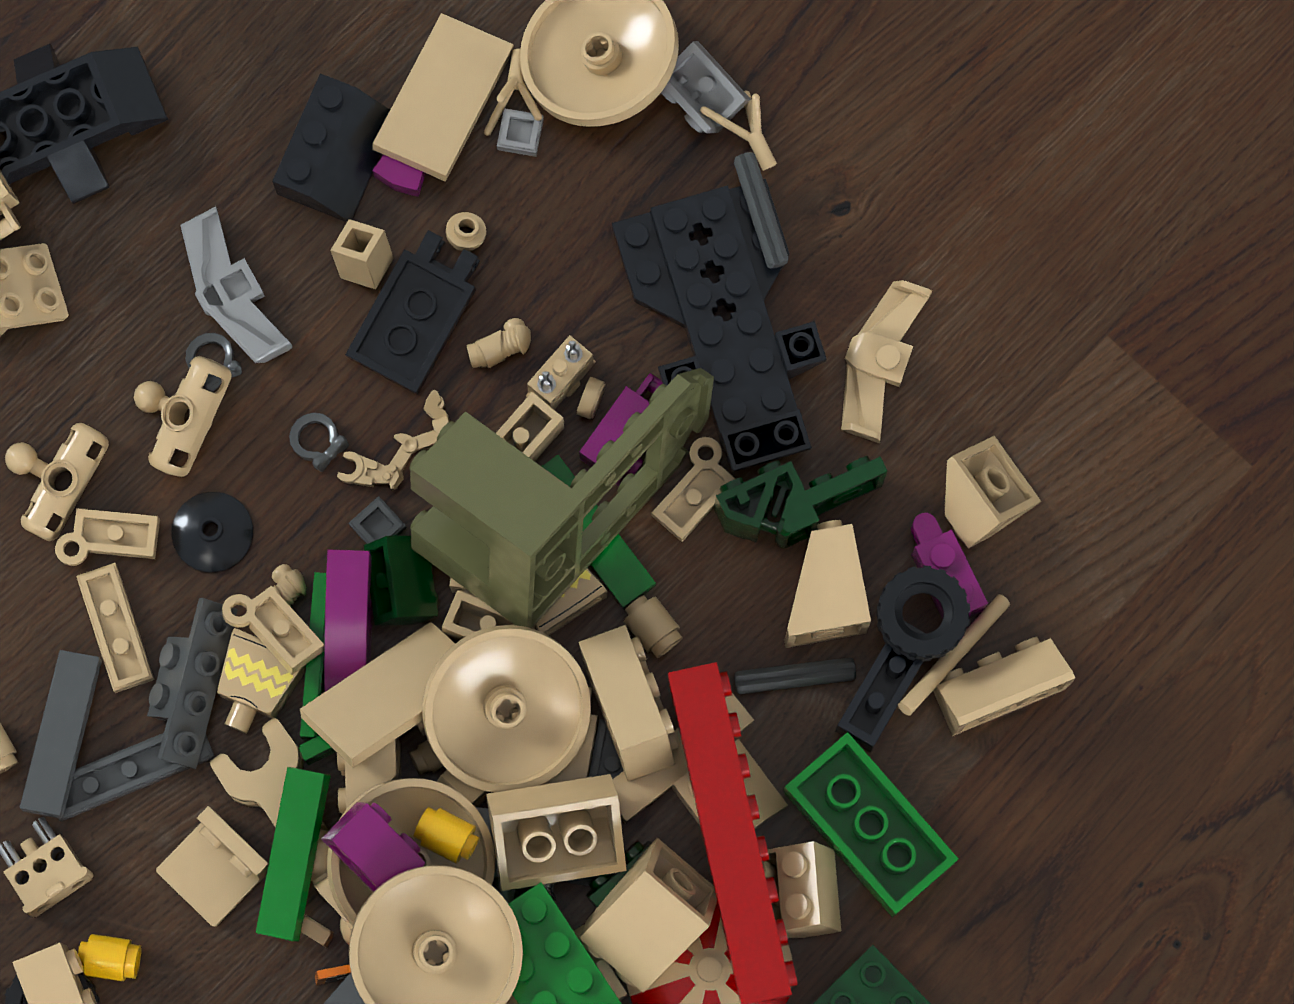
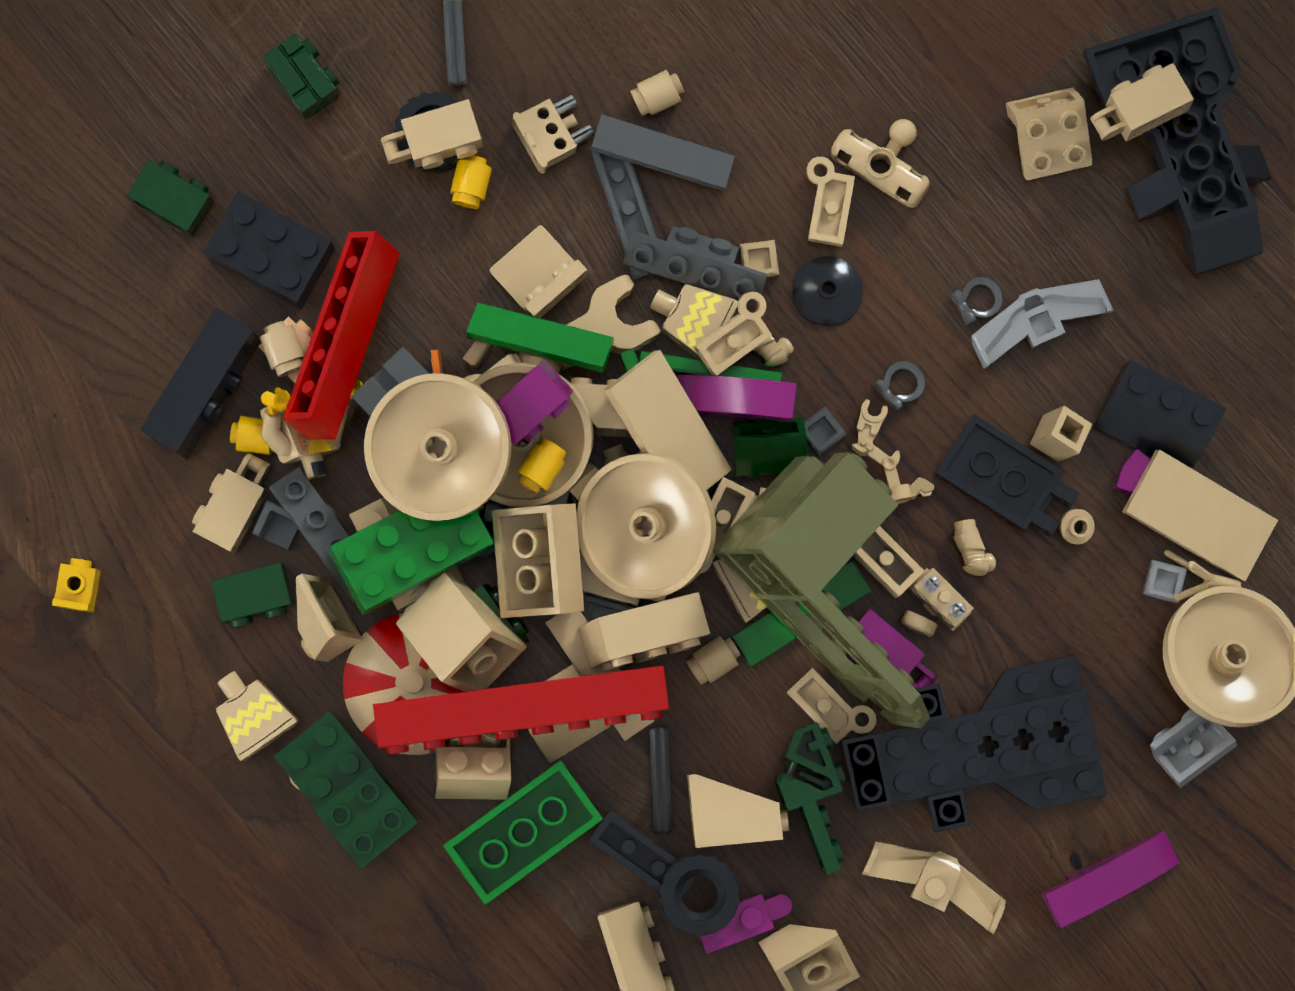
camera: 90 degrees right, 5 degrees up
(115, 627) = (751, 203): tan tile -> none
(178, 611) = (760, 257): none -> tan tile
(190, 395) = (935, 287): tan piece -> none
(754, 138) = (1144, 789): tan plant -> none
(761, 210) = (1076, 787): dark grey axle -> none
(860, 167) = (1110, 879): none -> magenta slope
(951, 659) = (654, 908): tan bar -> none

